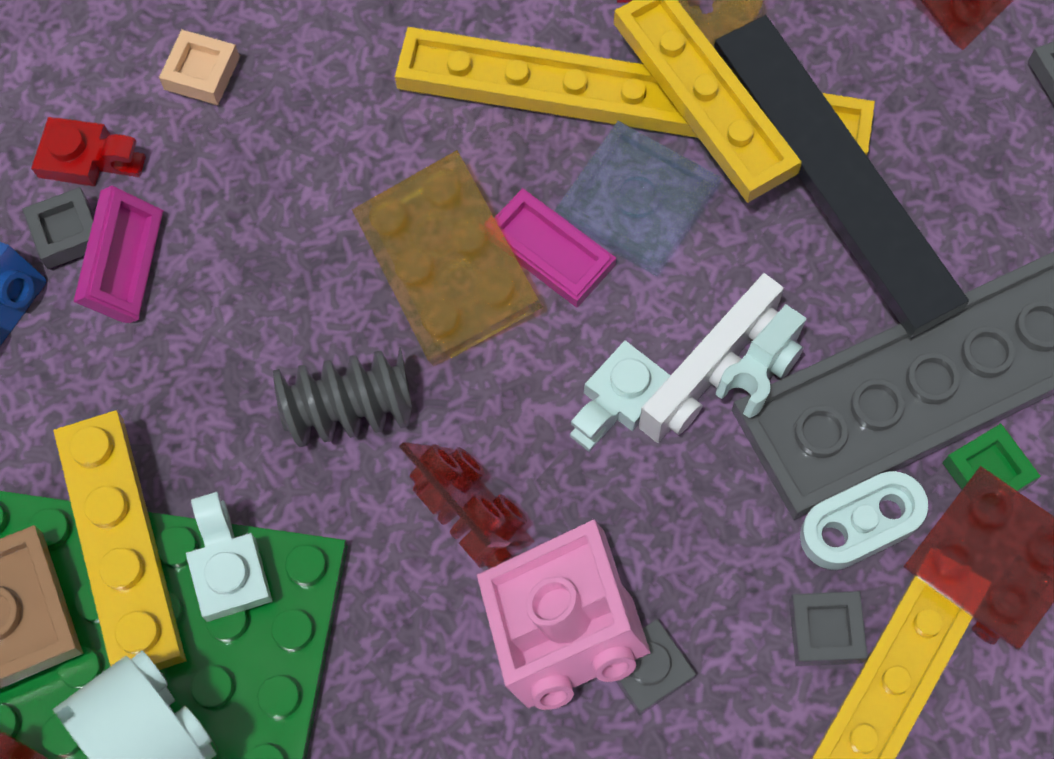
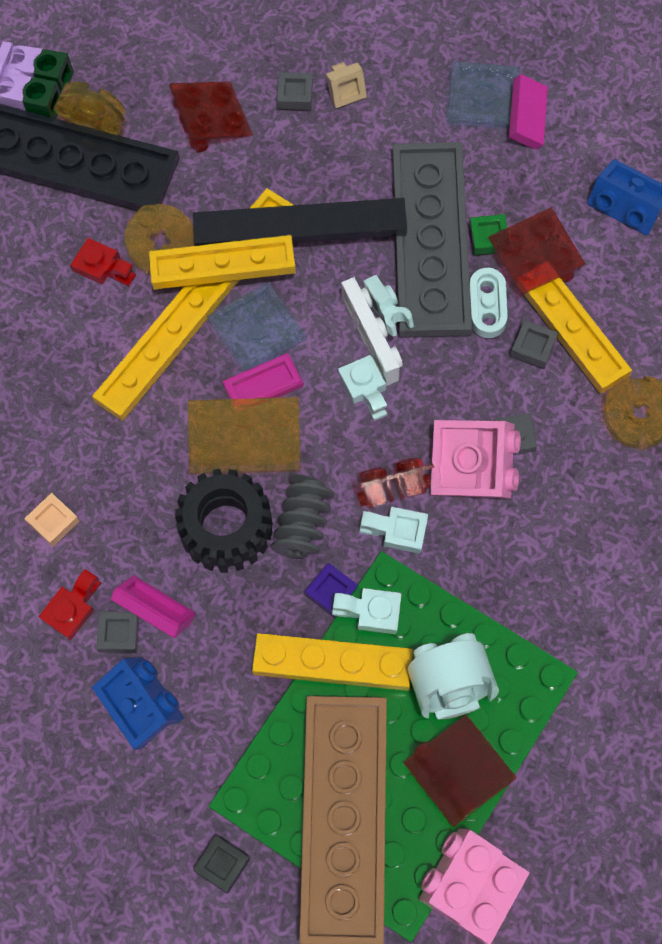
camera: 65 degrees left, 0 degrees up
(251, 490) = (325, 586): none -> dark purple plate
(278, 242) = (218, 492): none -> black tyre
(394, 554) = (401, 529): none -> light aqua plate

